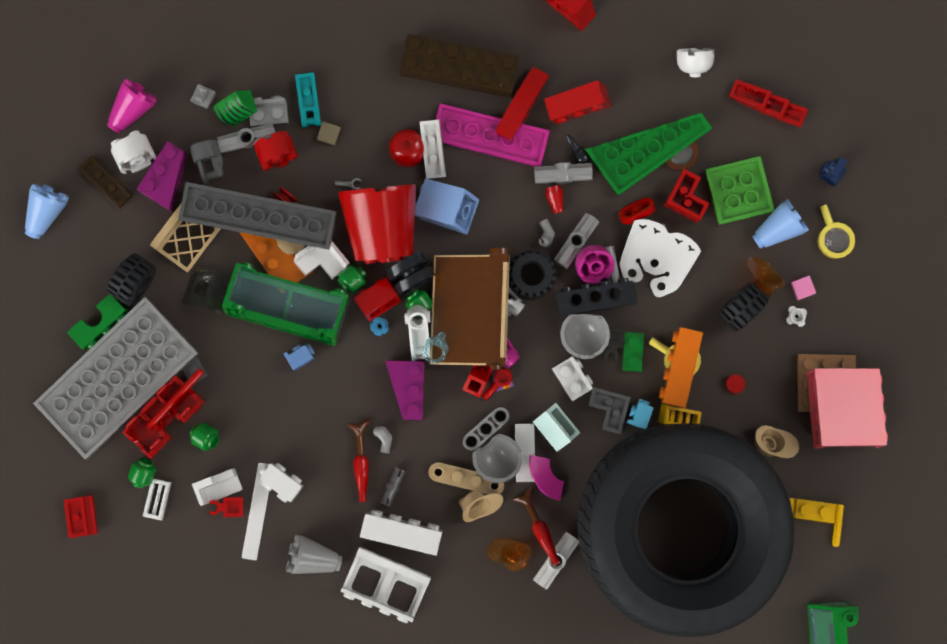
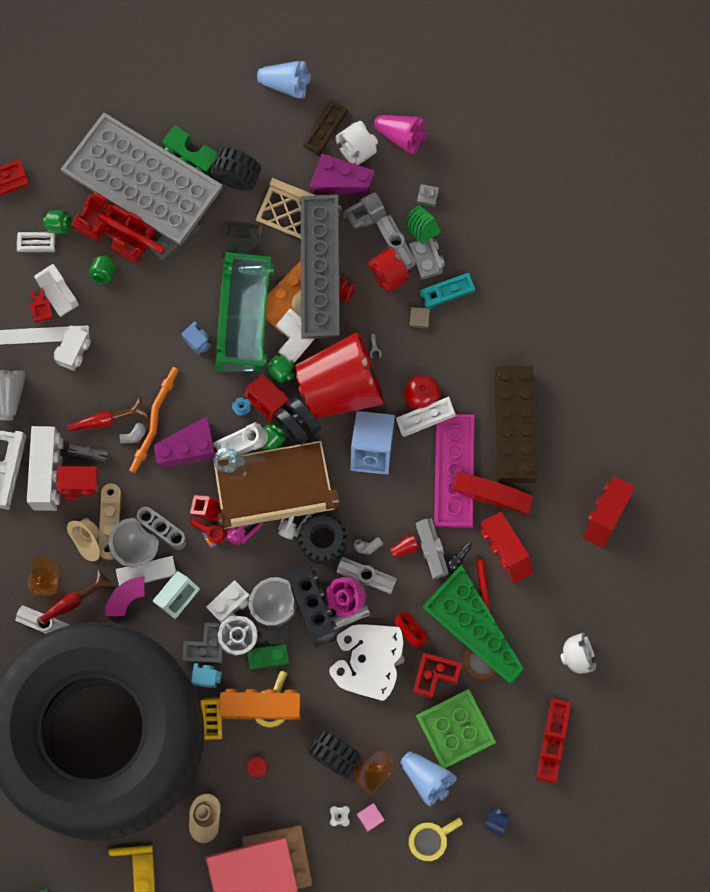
camera: 90 degrees right, 10 degrees down
(340, 395) = (141, 454): none -> orange bar
(423, 501) = (77, 481): none -> red brick
(605, 133) = (483, 583): none -> red bar
(614, 368) = (236, 627): none -> white cylinder

